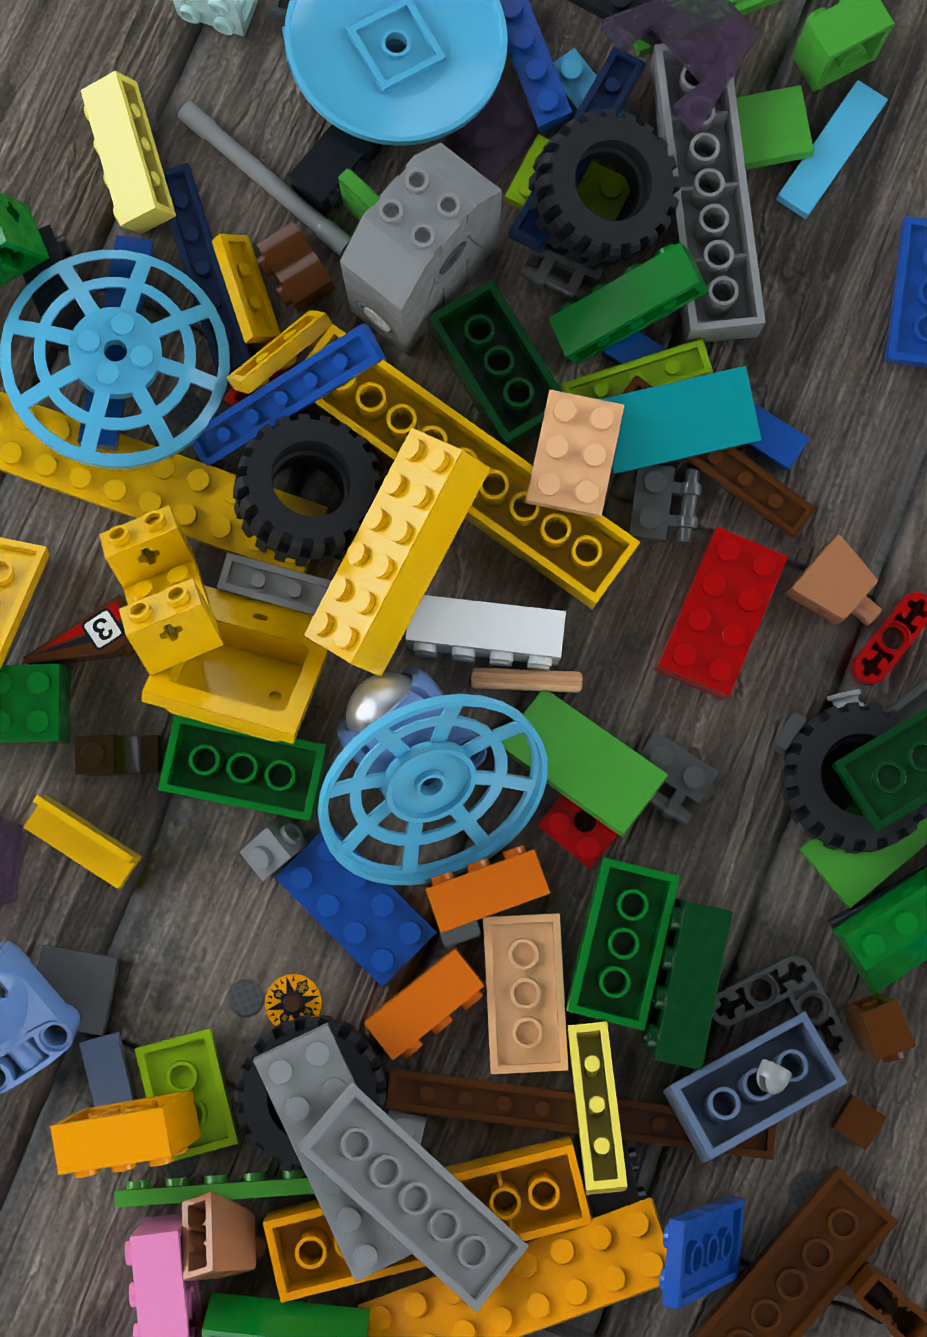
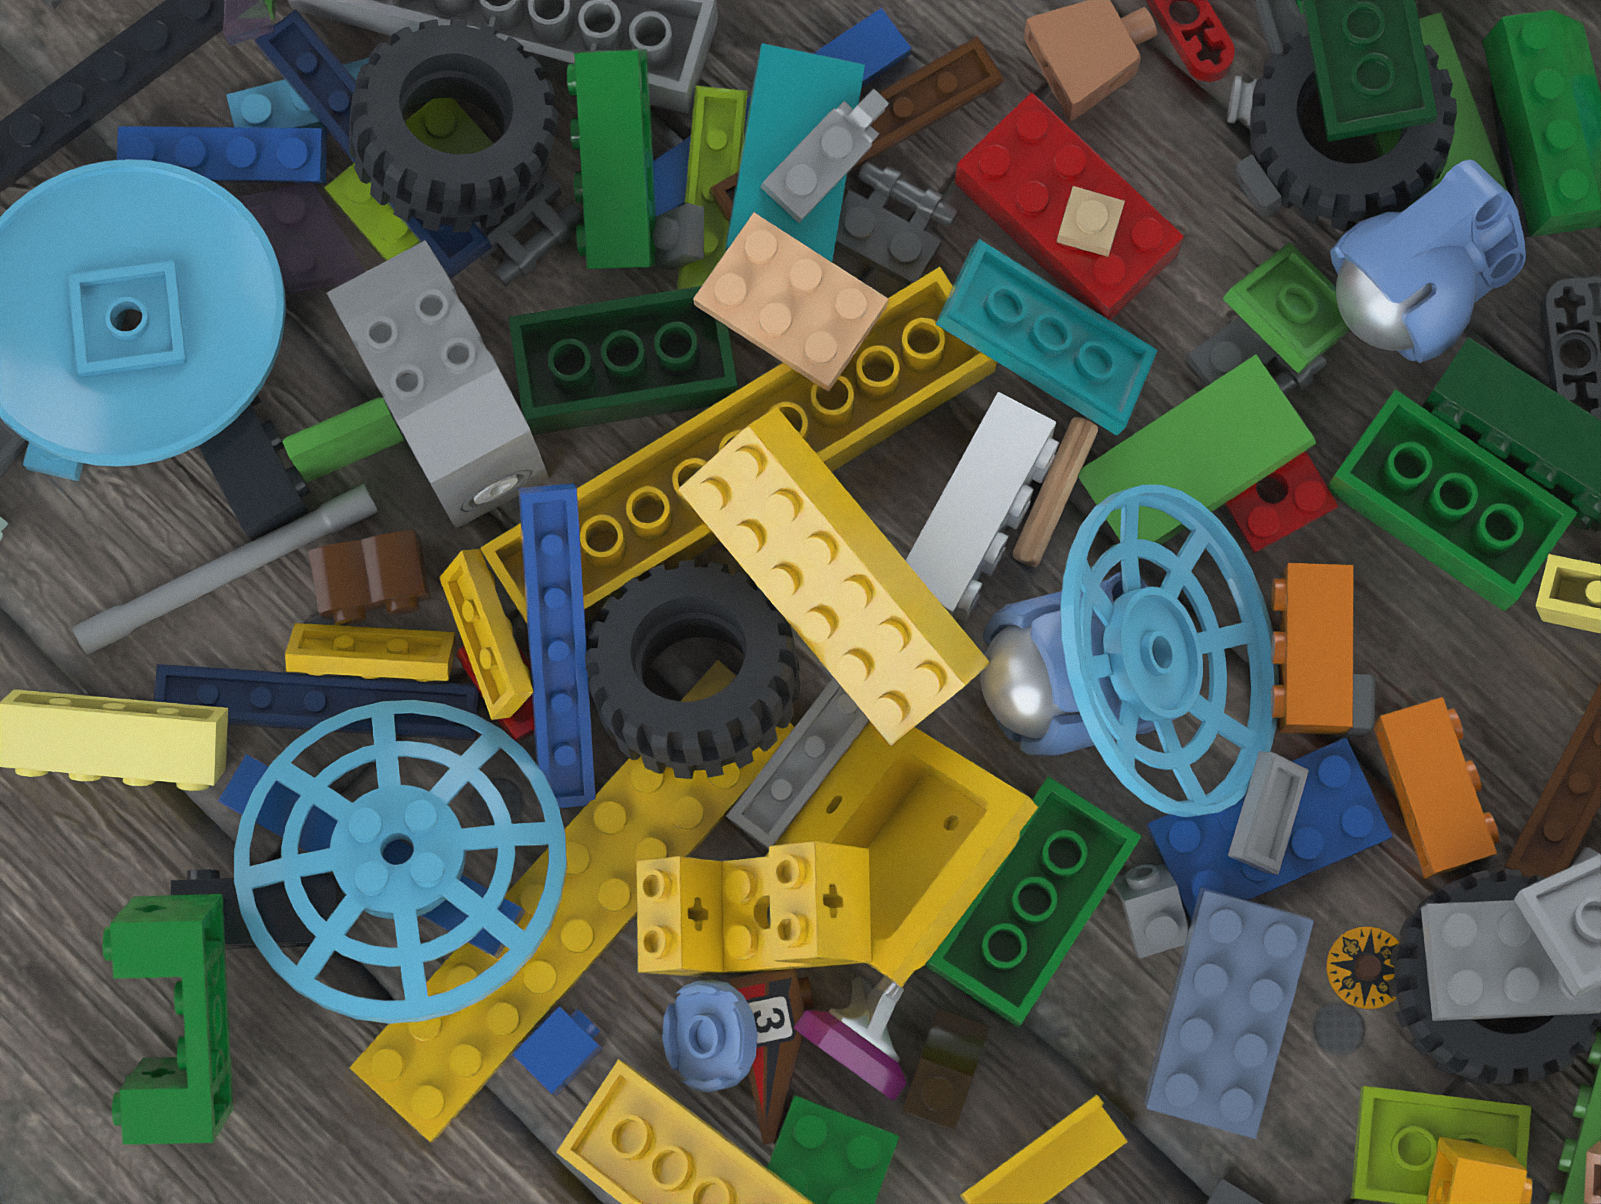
camera: 65 degrees left, 5 degrees down
(39, 508) = (559, 1049): none -> blue brick
(81, 597) = (710, 1035): none -> medium blue tile
(109, 690) = (860, 1034): none -> piece
(220, 922) = (1228, 1013): none -> sand blue brick
(360, 898) = (1268, 812): none -> light grey tile
(525, 993) = (1469, 653): light nougat plate -> none
(594, 368) = (679, 237): none -> dark grey plate
(623, 632) = (1047, 337): none -> teal tile
(685, 438) = (824, 156): none -> light grey hinge
(711, 628) = (1090, 221): none -> tan plate
(713, 788) = (1290, 307): none -> bright green tile
(768, 862) = (1417, 272): none -> medium blue piece

